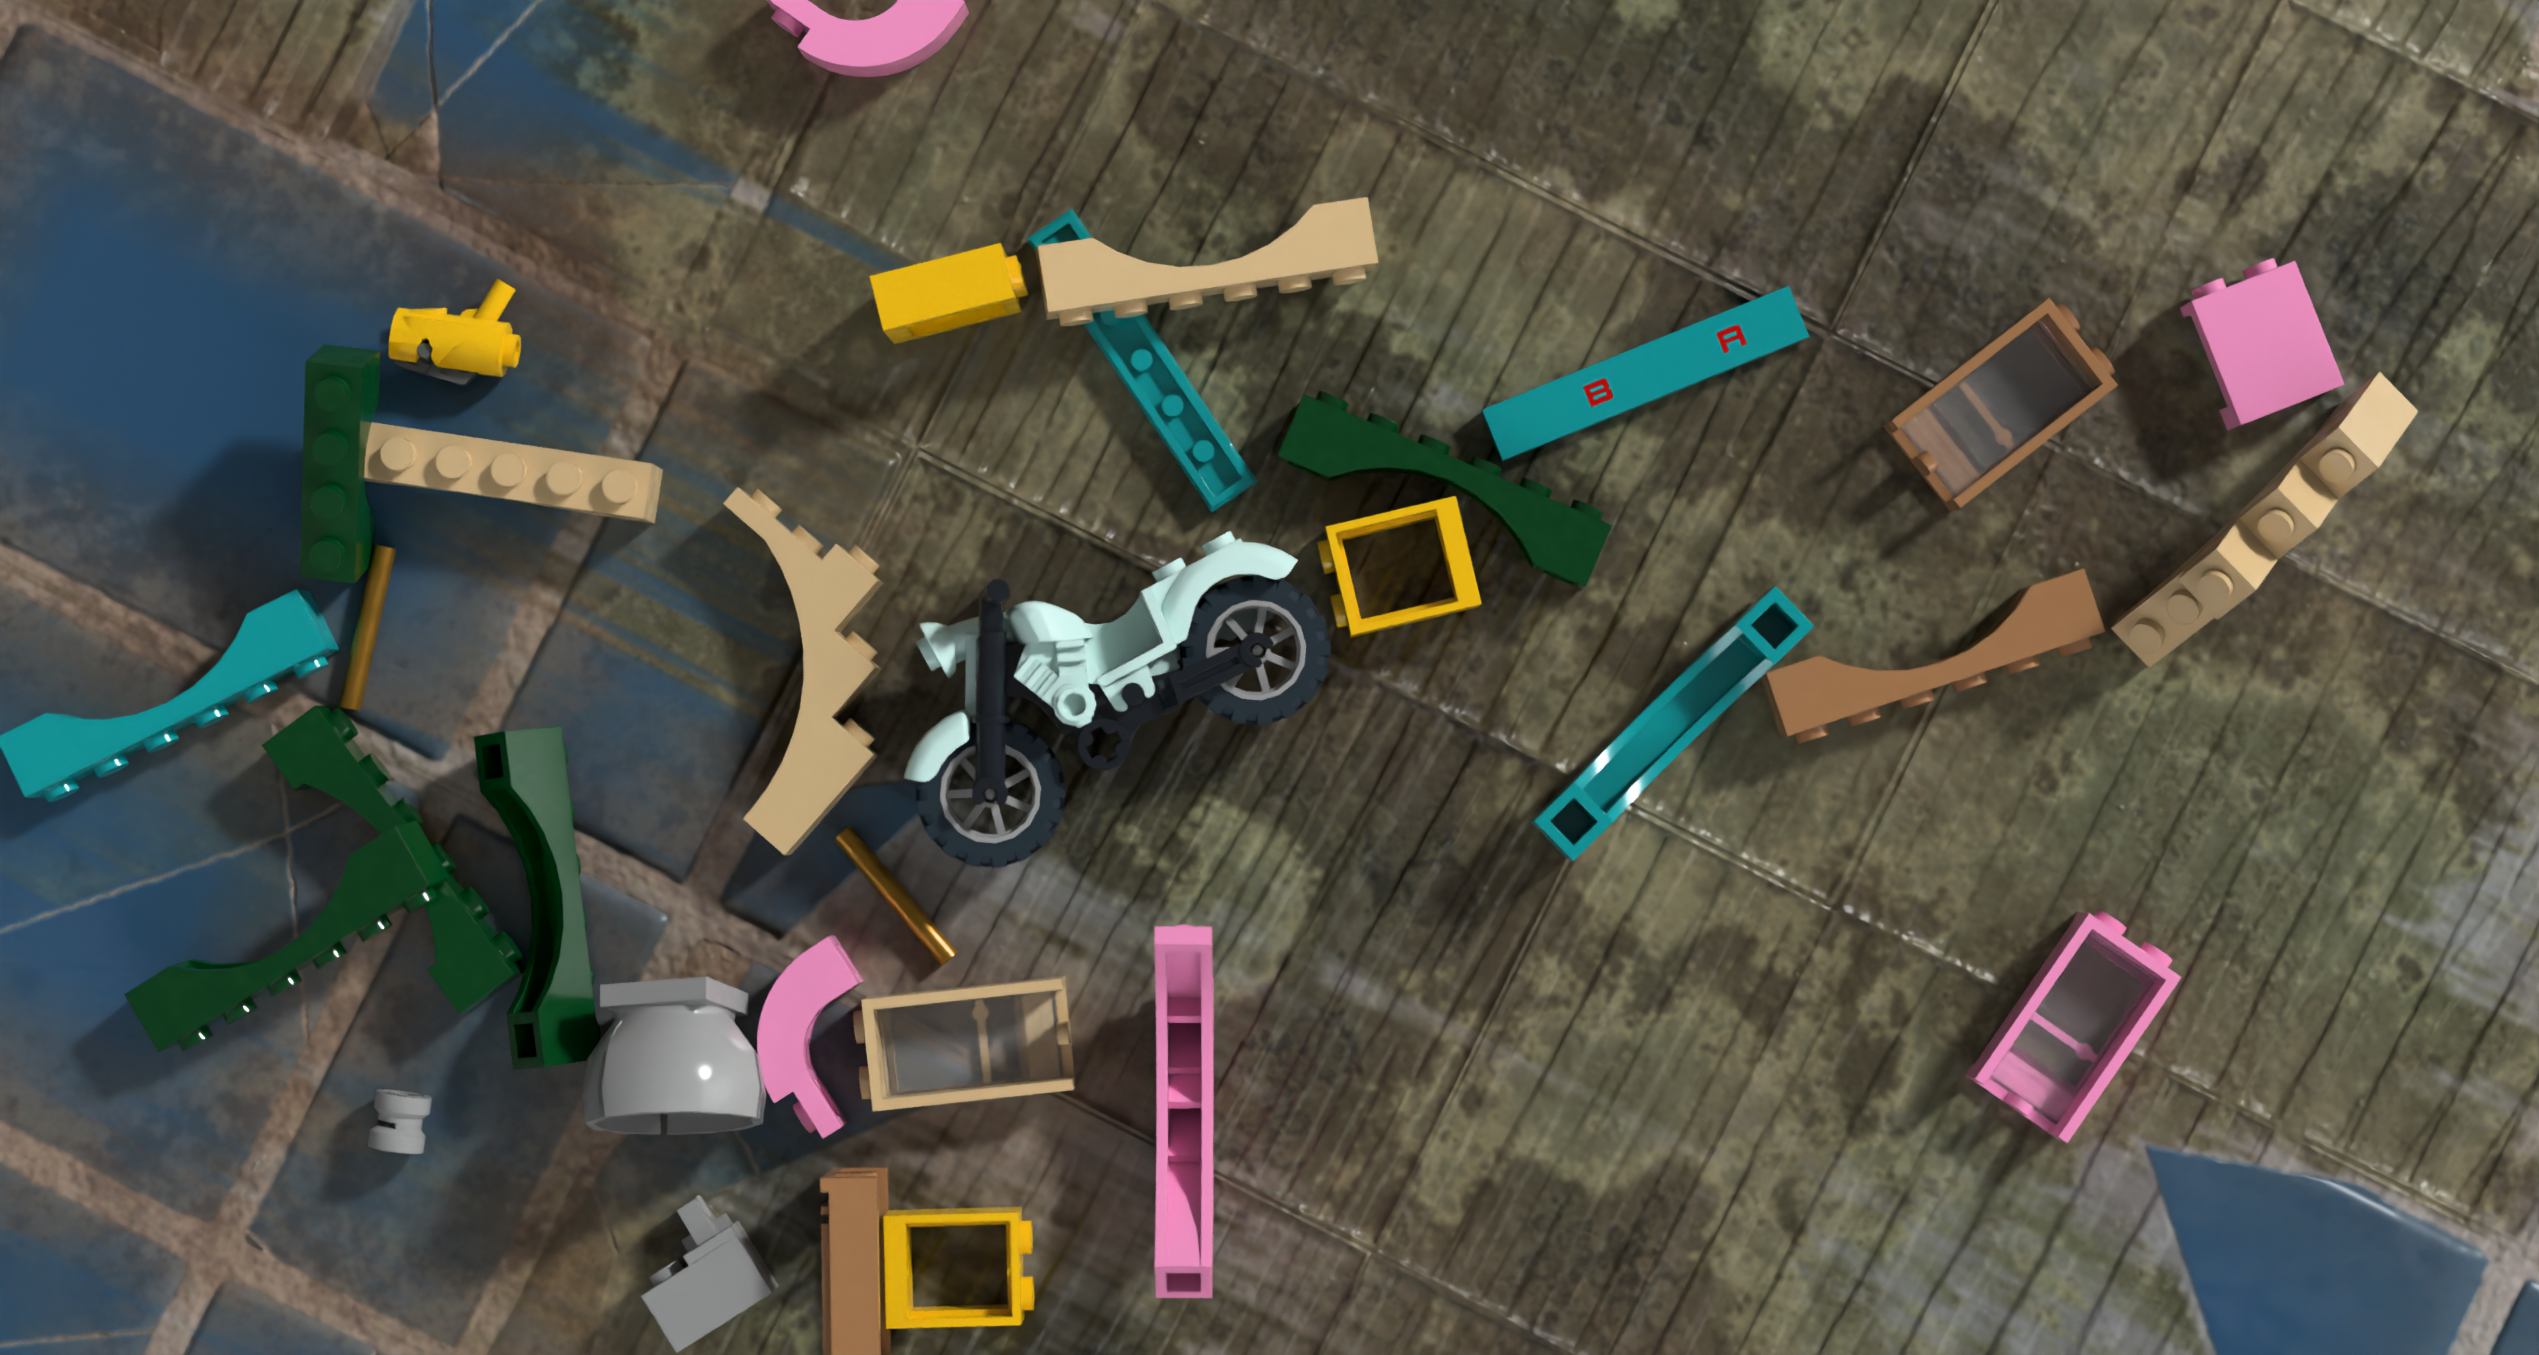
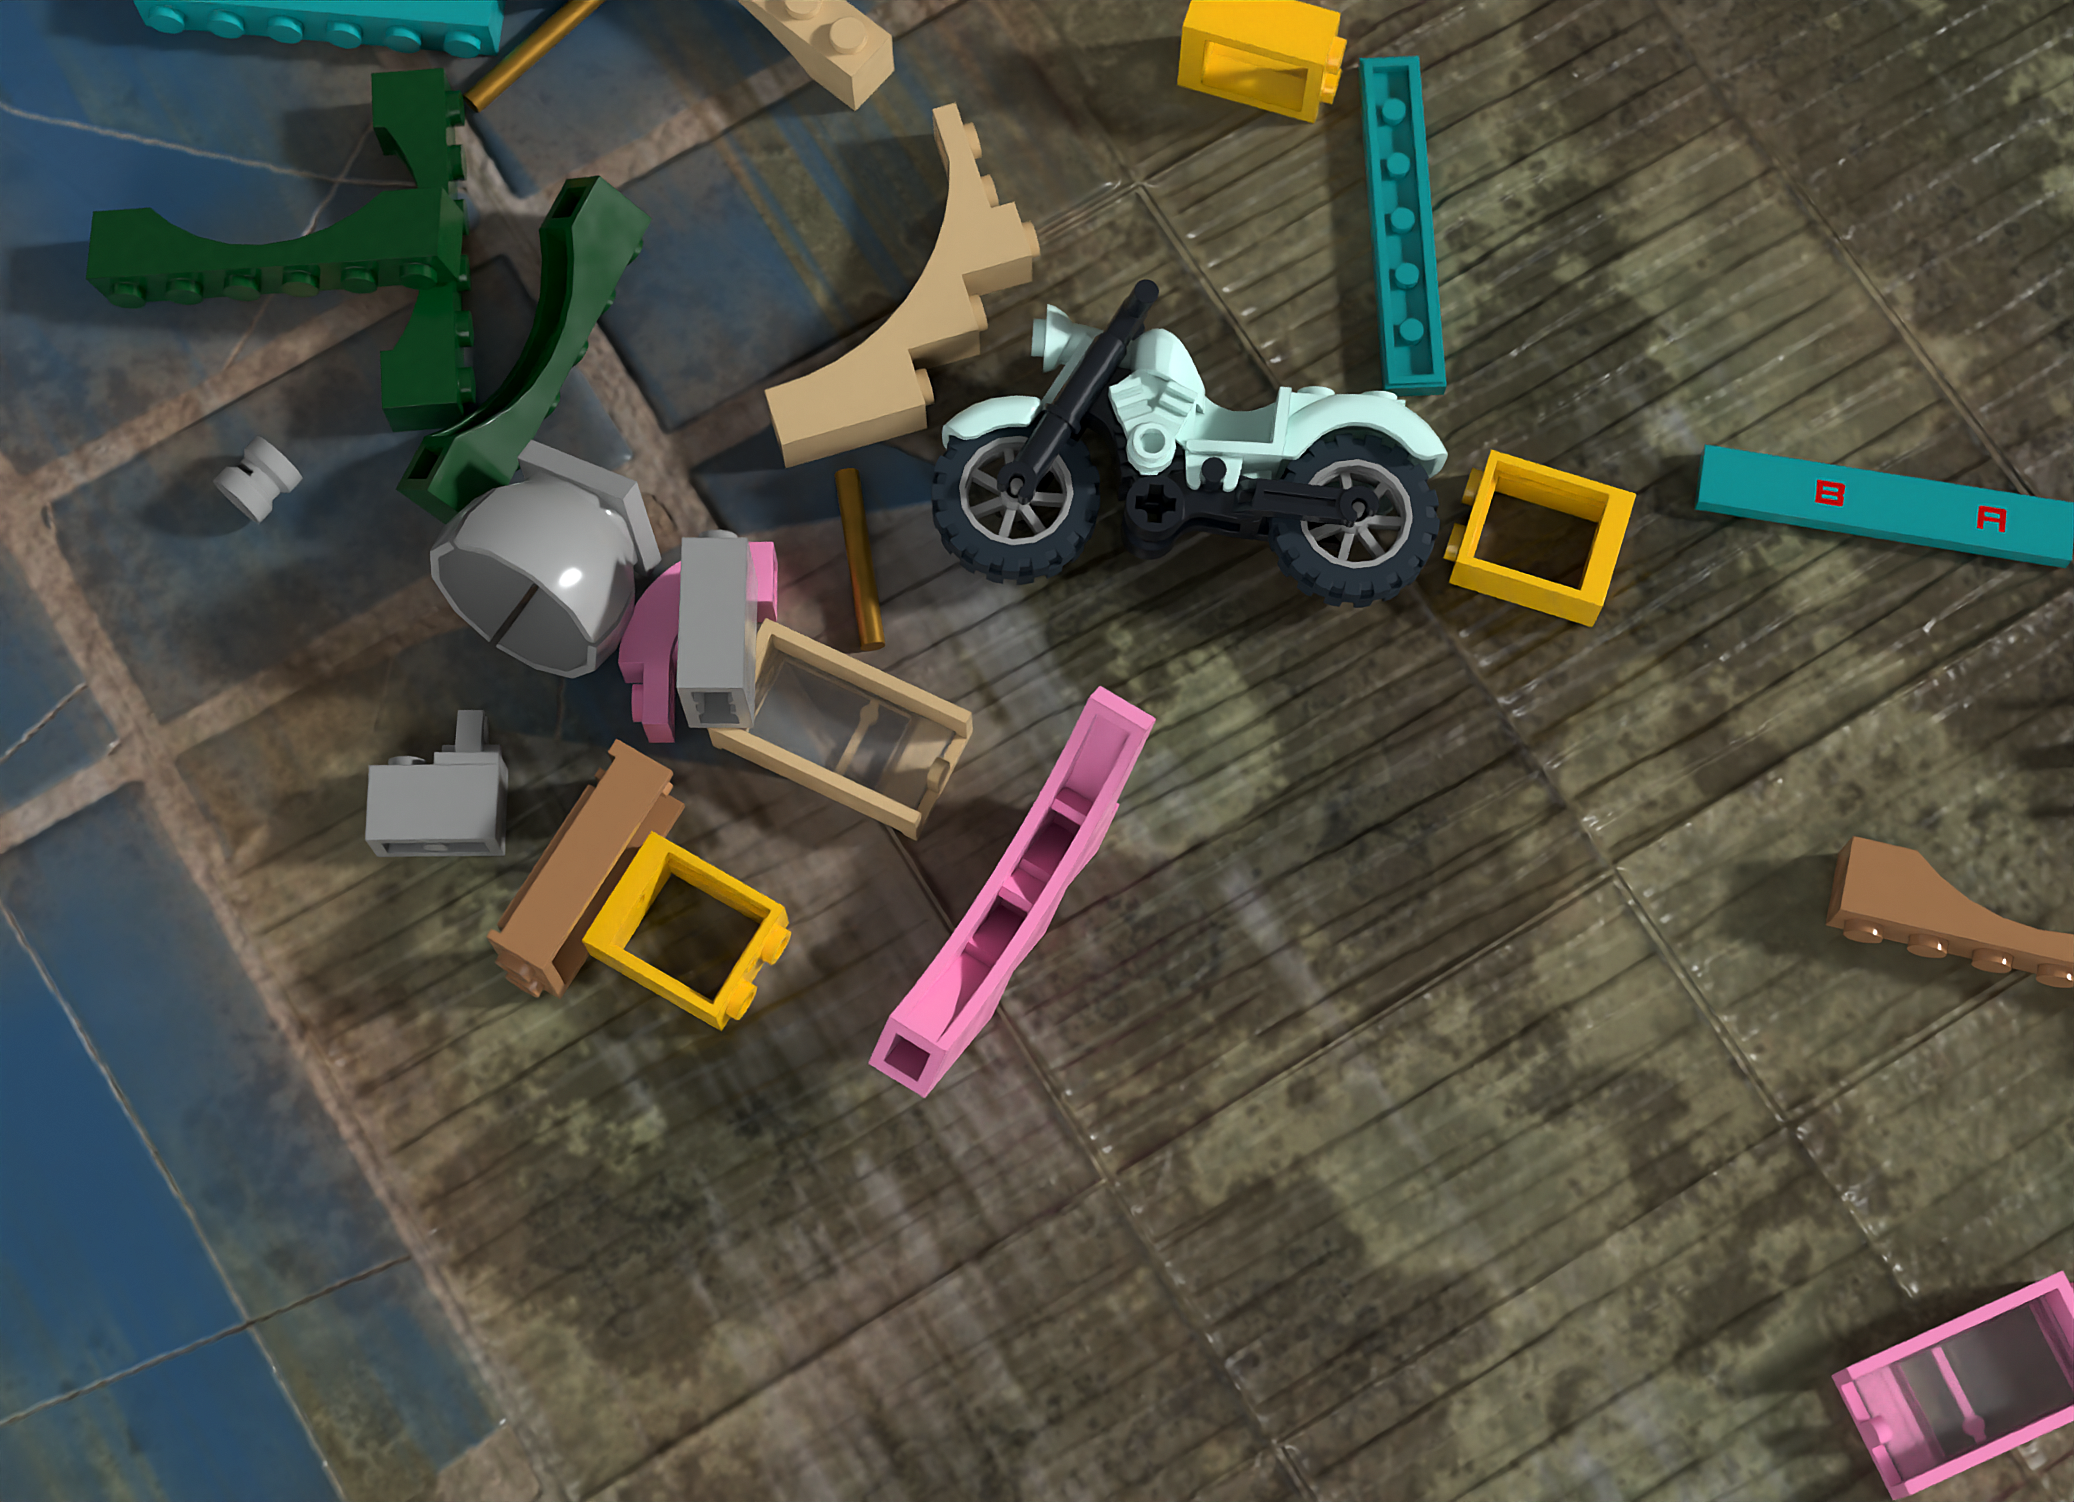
camera: 30 degrees right, 15 degrees down
(840, 1048) = (717, 631): none -> light grey brick
(1093, 278) = (1632, 210): tan arch -> none
(1551, 535) = (1550, 398): dark green arch -> none
(1671, 723) = (1644, 853): teal arch -> none

